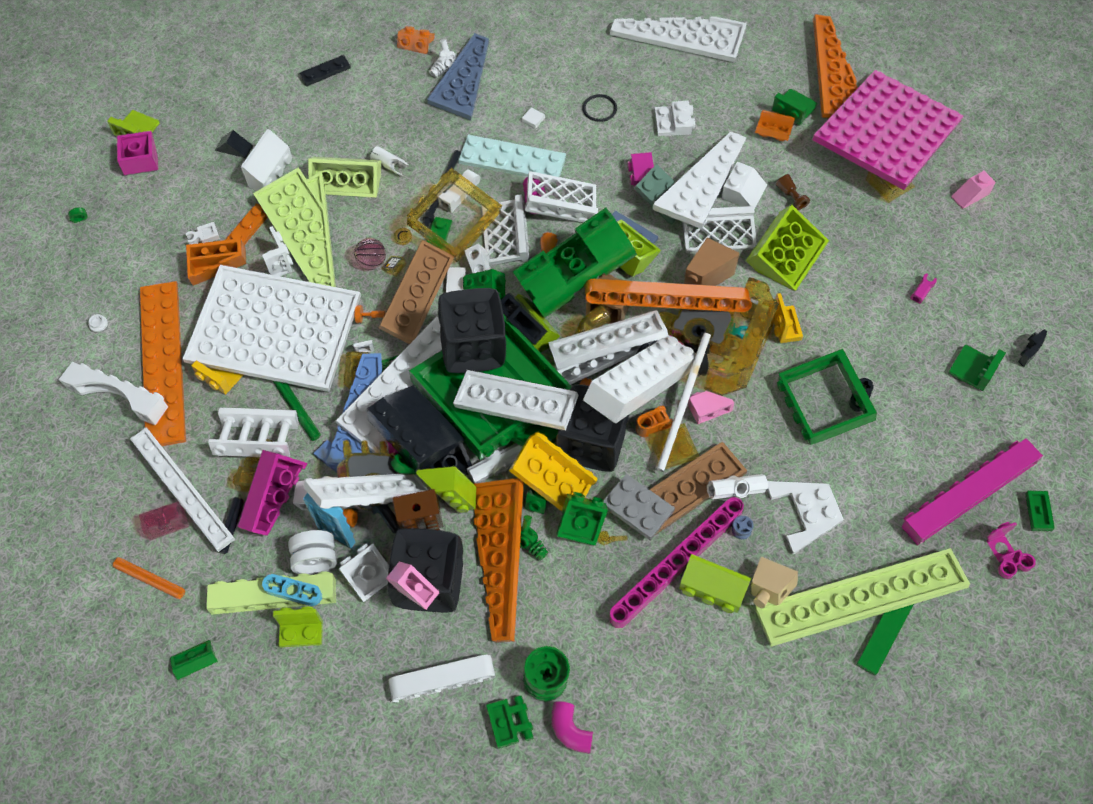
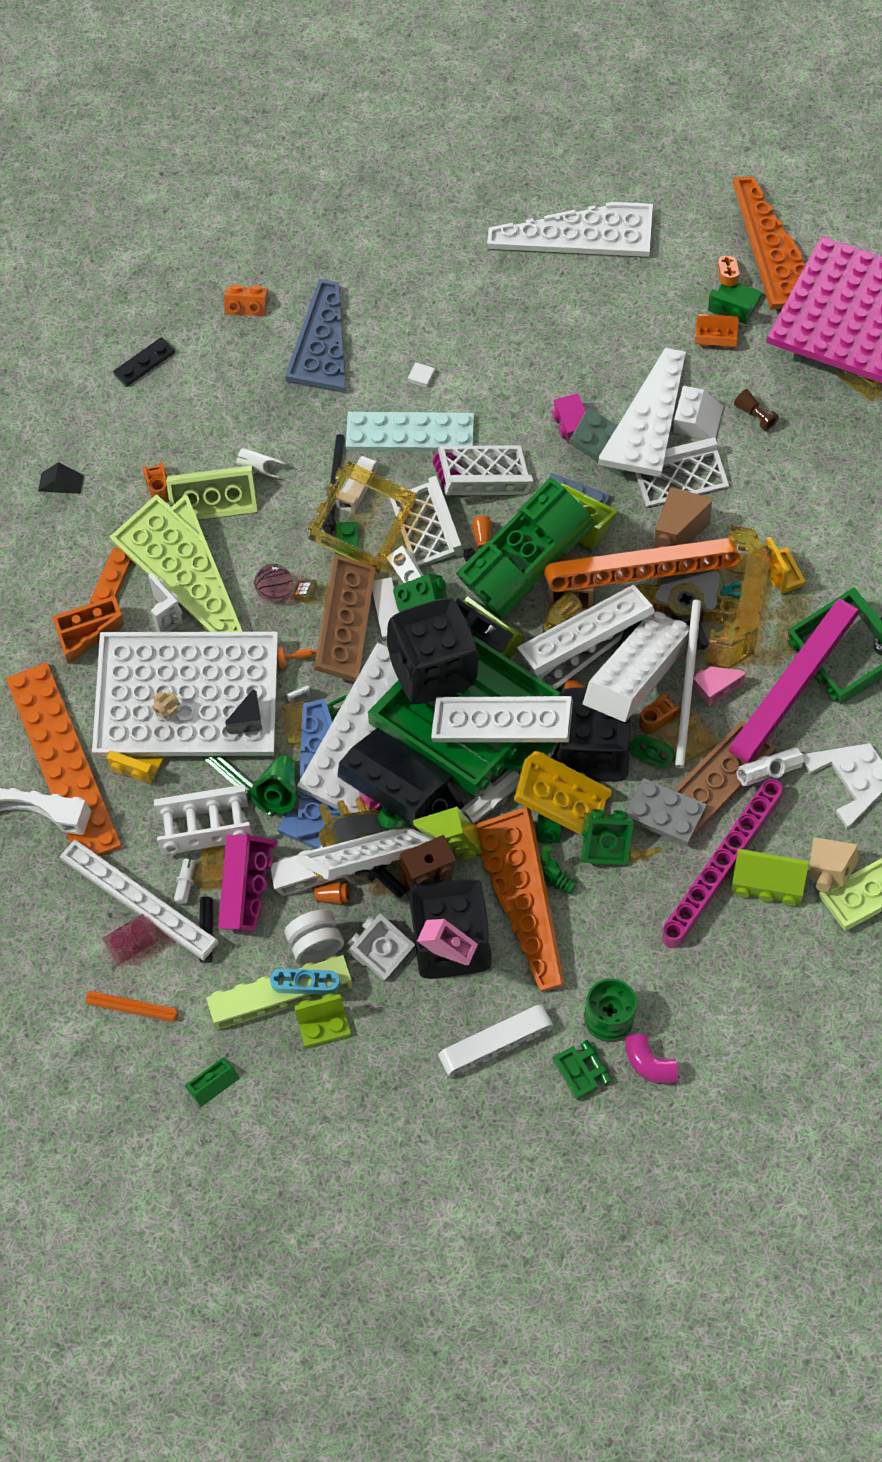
camera: 10 degrees left, 0 degrees up
(205, 233) = (63, 597): white plate -> none
(224, 481) = (185, 881): none -> white axle
(250, 332) = (165, 704): none -> tan gear
(266, 161) = (113, 495): white slope -> none
(302, 157) = (156, 480): none -> orange piece
(313, 354) = (246, 716): none -> black slope
(320, 417) = (276, 786): none -> green cone
(331, 521) = (328, 895): medium azure plate -> none
(402, 236) = (304, 554): clear yellow tile -> none
(444, 62) = (292, 322): white piece -> none
(596, 119) = (498, 330): black tyre -> none
(641, 454) = (653, 752): none -> green plate
(675, 119) = (594, 344): white plate -> none
(742, 523) = (784, 806): sand blue wheel -> none
(773, 417) = (793, 681): none -> dark pink beam
(788, 248) = (765, 480): lime slope -> none
(794, 82) = (728, 274): none -> orange beam

